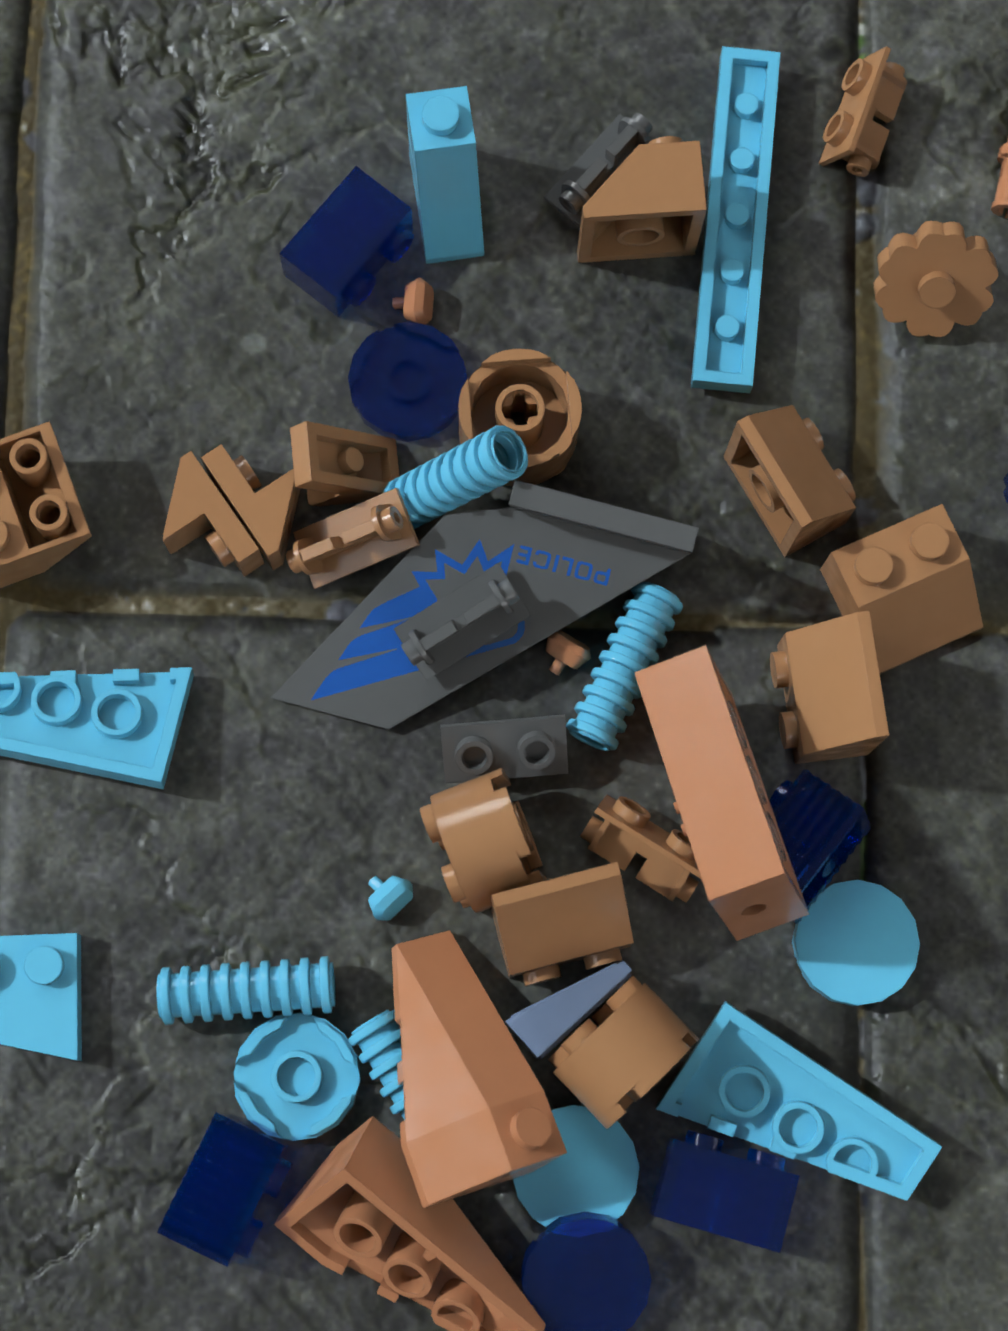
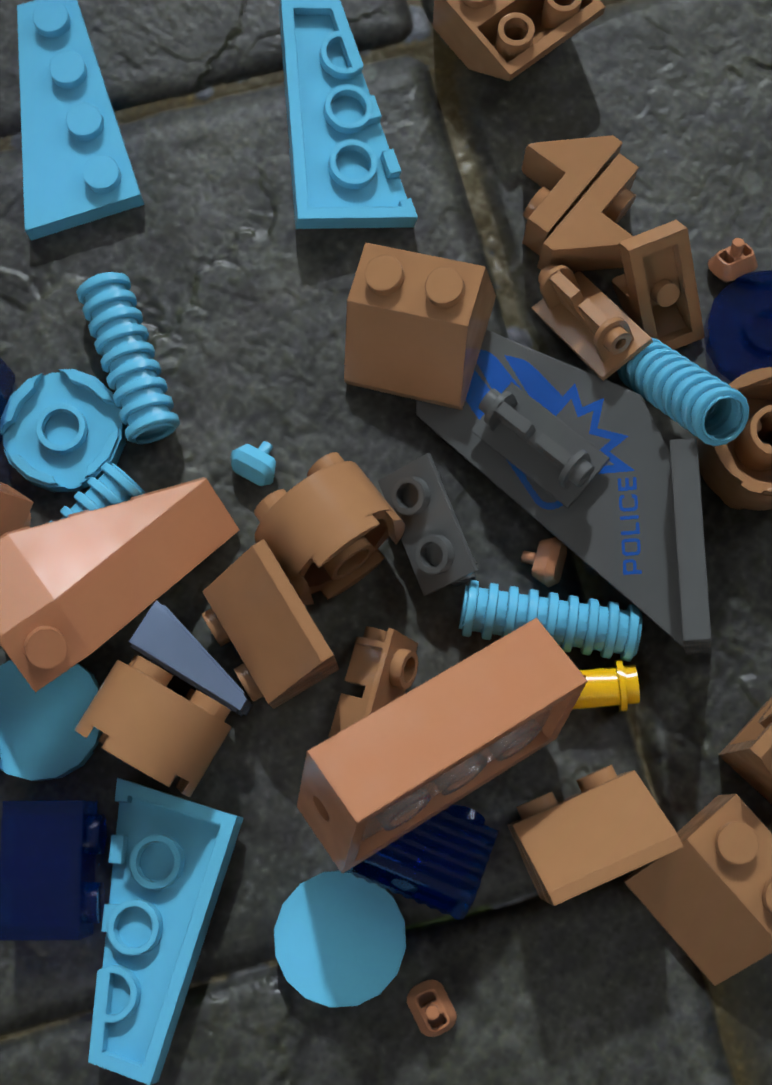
camera: 80 degrees right, 0 degrees up
(308, 702) = (416, 324): none -> medium nougat slope
(331, 388) = (733, 261): none -> nougat rock
(700, 627) = (610, 687): none -> yellow pin
(938, 879) = (431, 1008): none -> nougat rock

